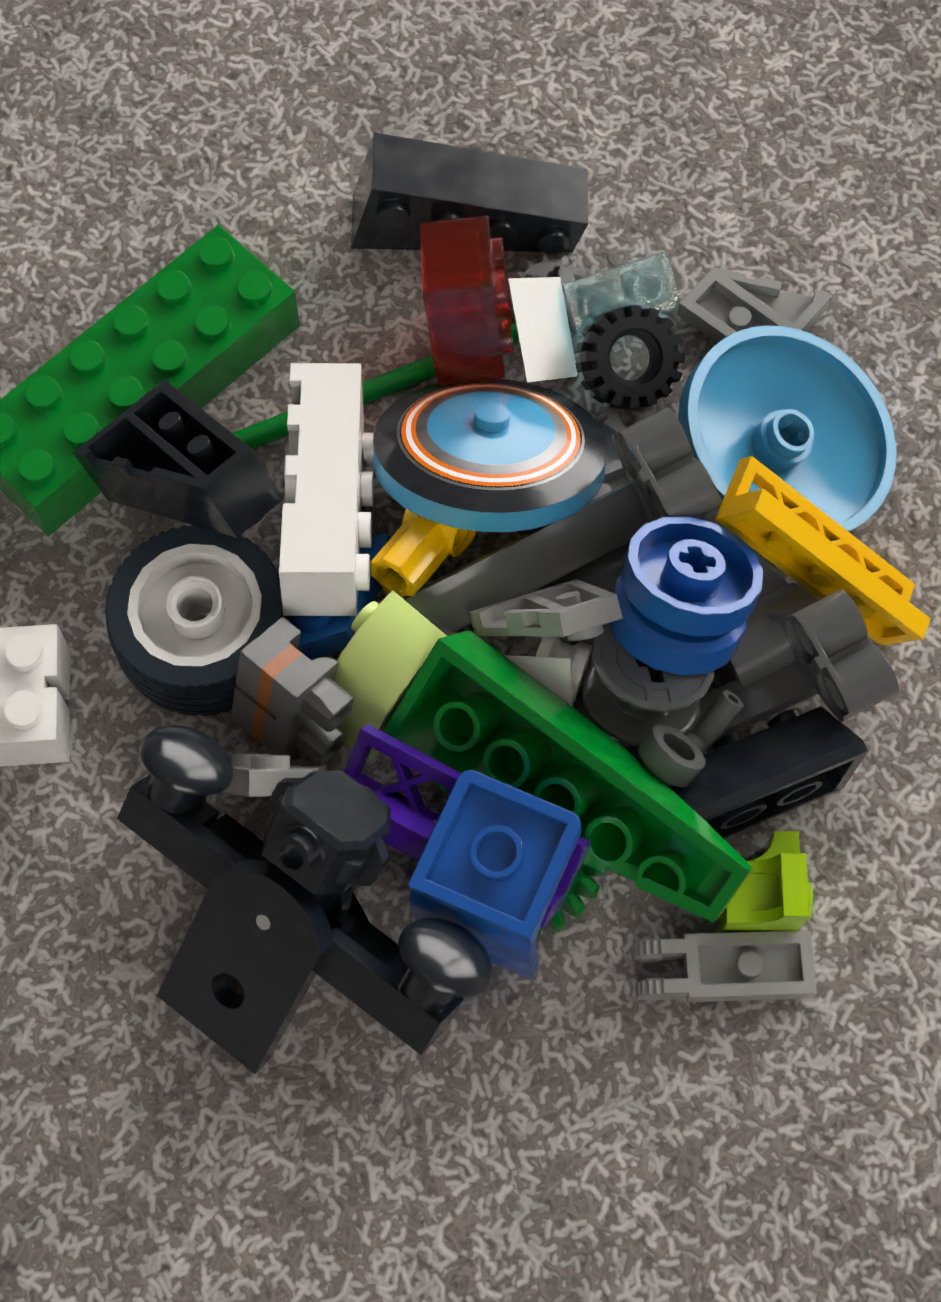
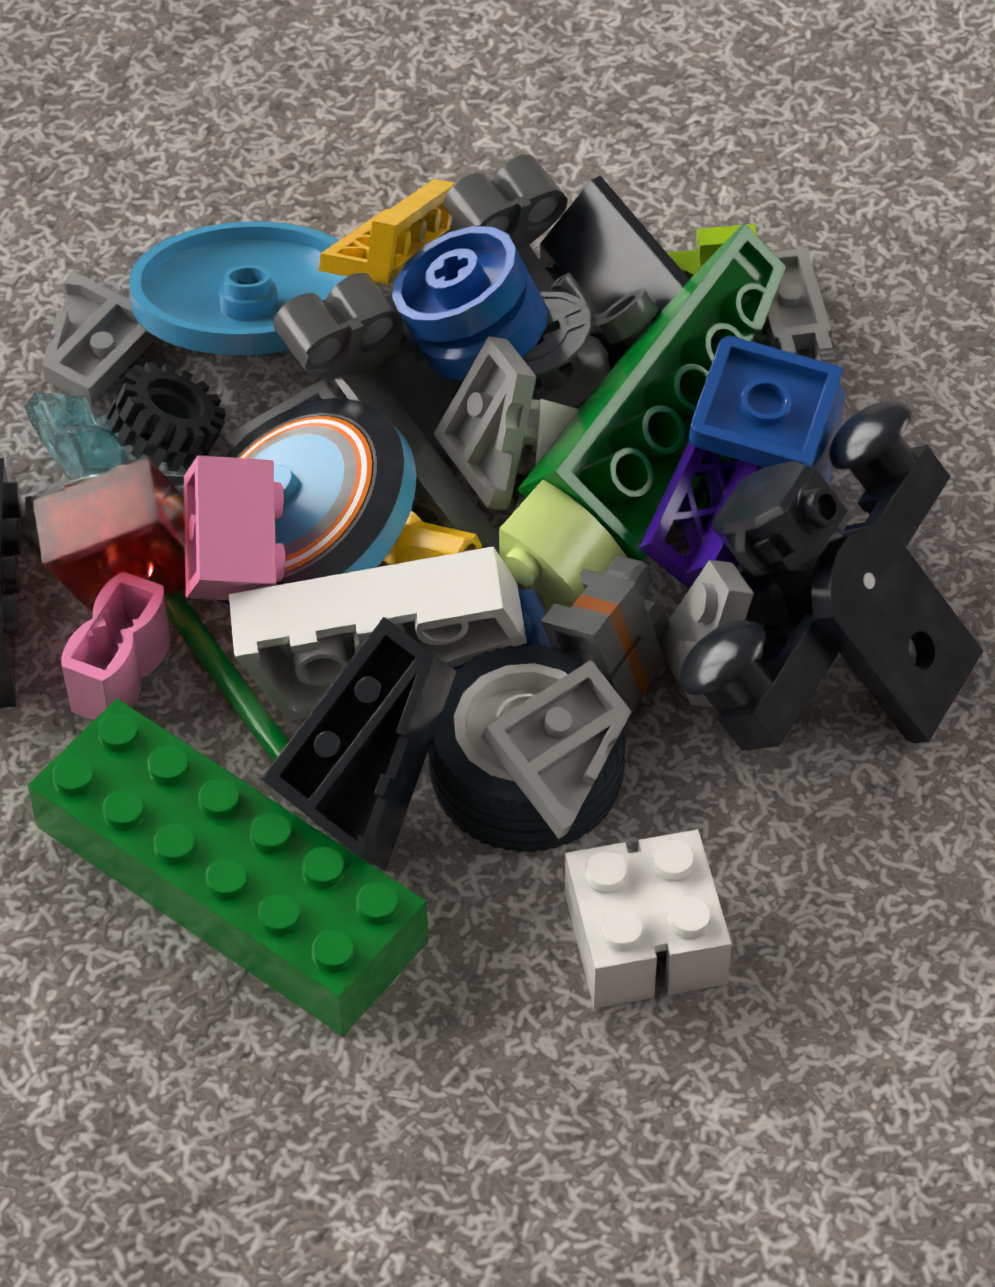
camera: 95 degrees left, 15 degrees down
(145, 618) = (560, 742): none -> light grey wing
(366, 304) = (116, 646): none -> bright pink brick
(429, 366) = (231, 526): none -> bright pink brick

